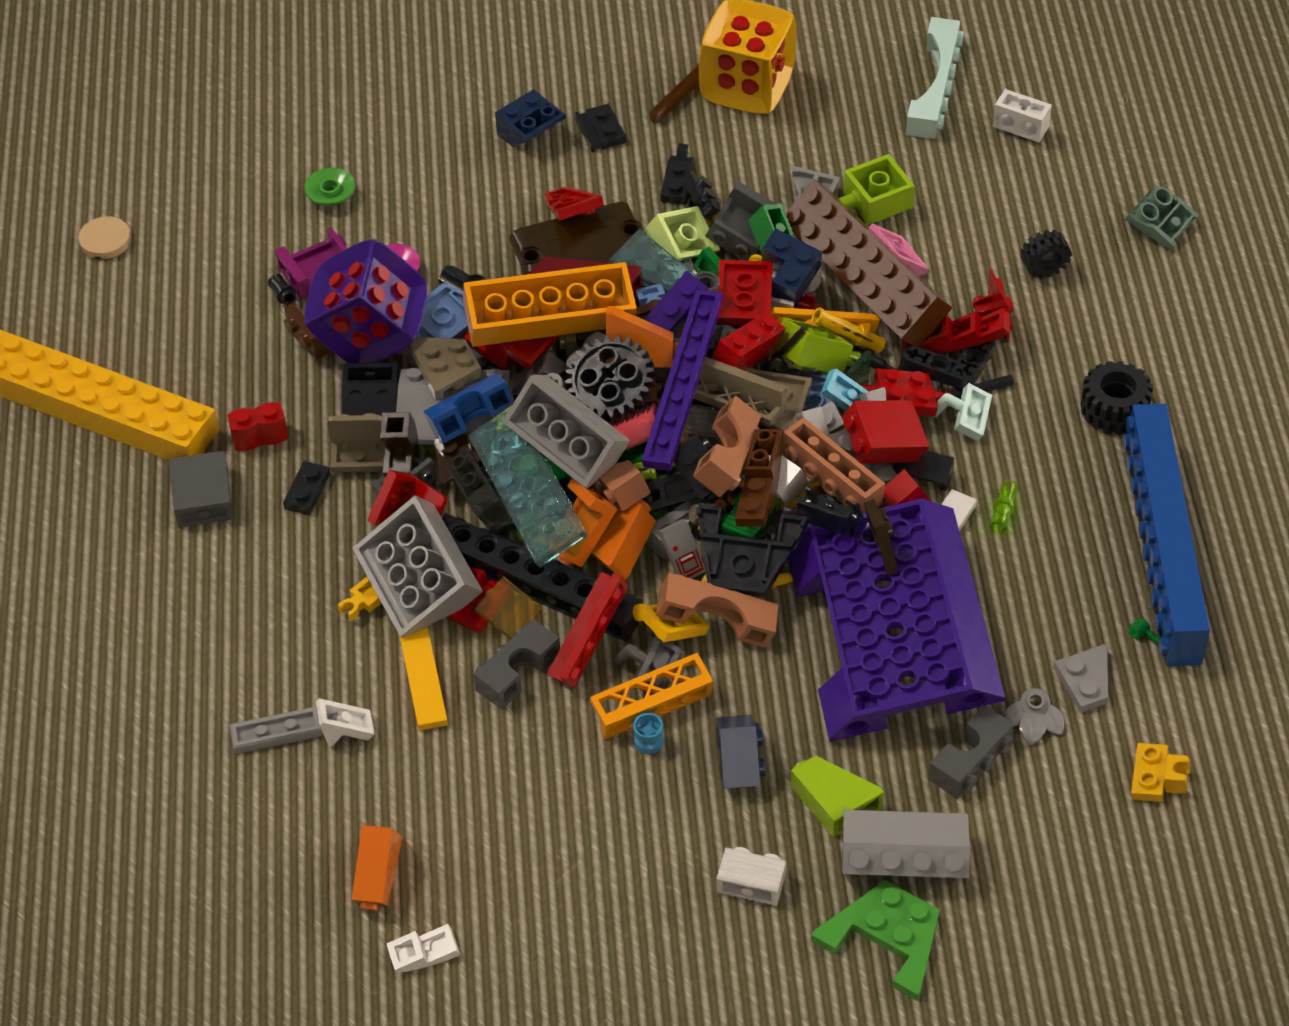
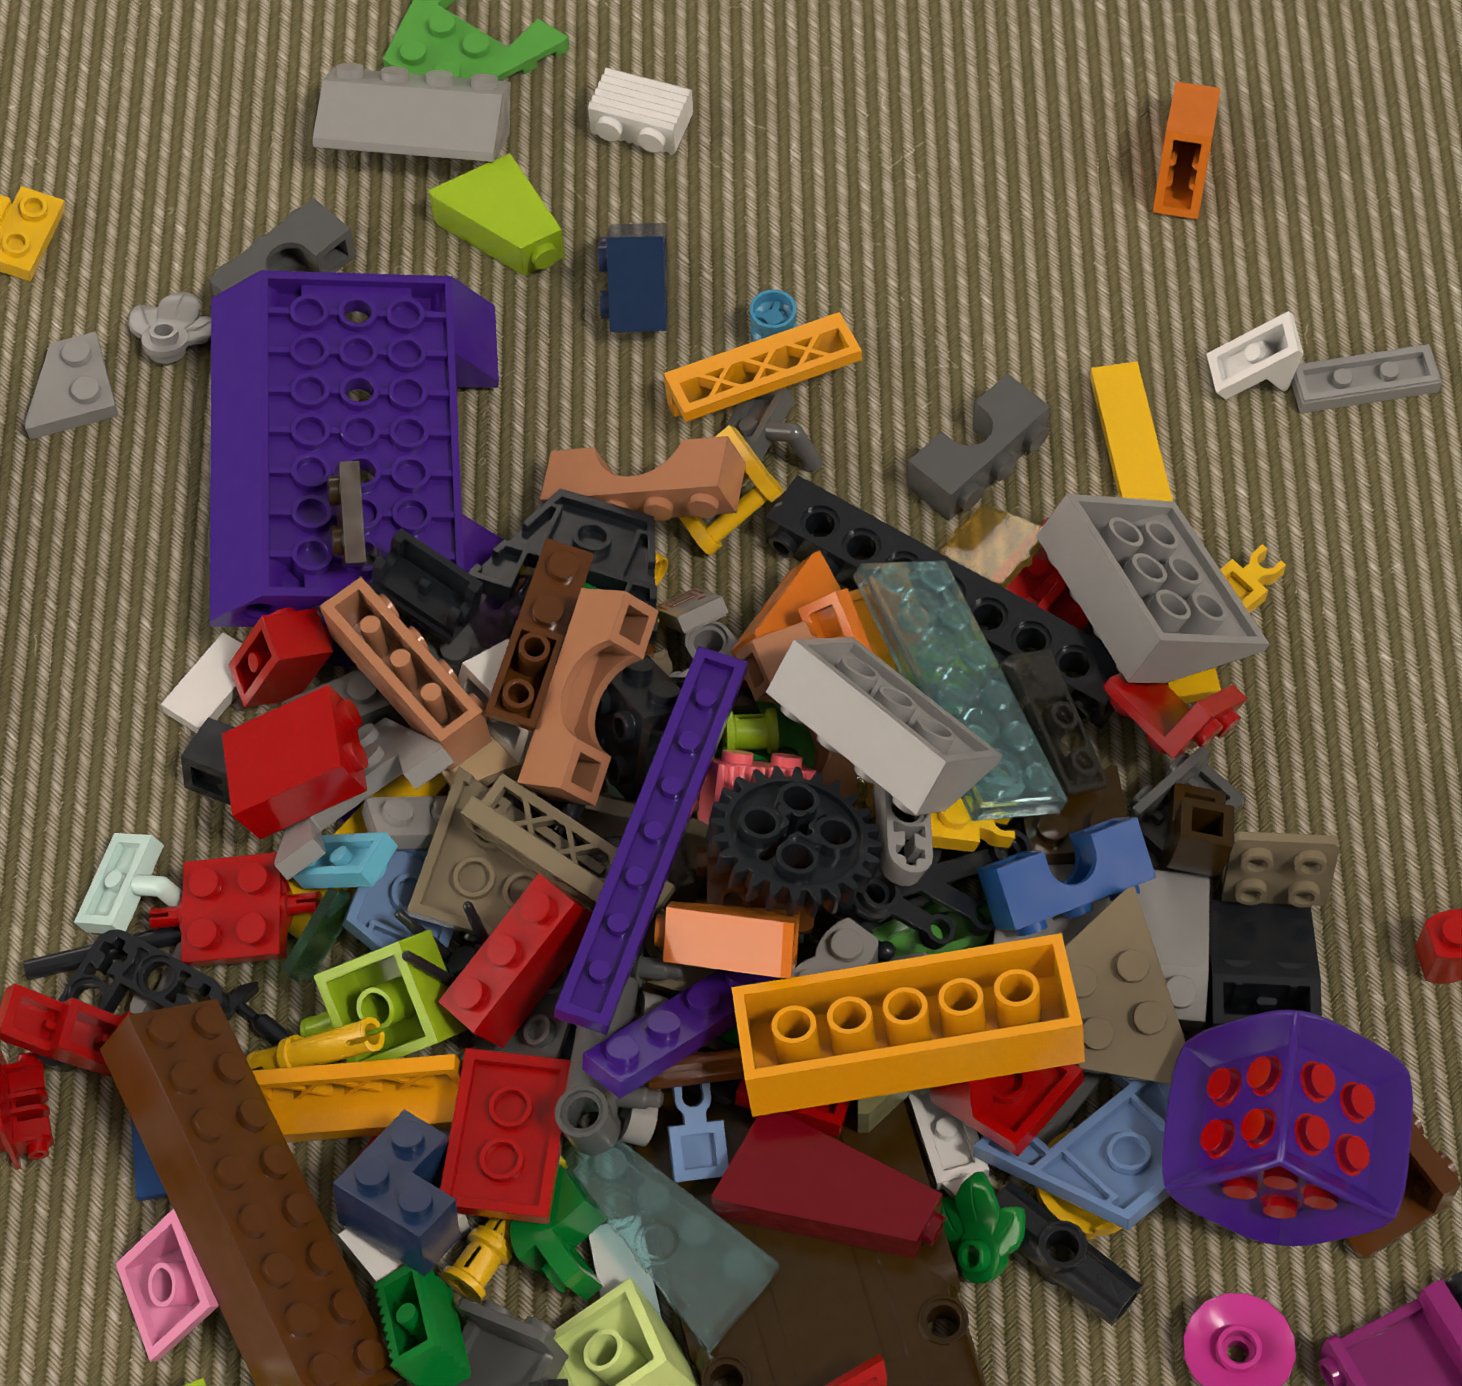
camera: 175 degrees left, 10 degrees up
(306, 488) = (1367, 821): black plate -> none
(422, 951) = (1120, 52): white slope -> none
(588, 629) = (856, 465): red fence -> none
(1003, 506) = (116, 693): clear neon green pin -> none

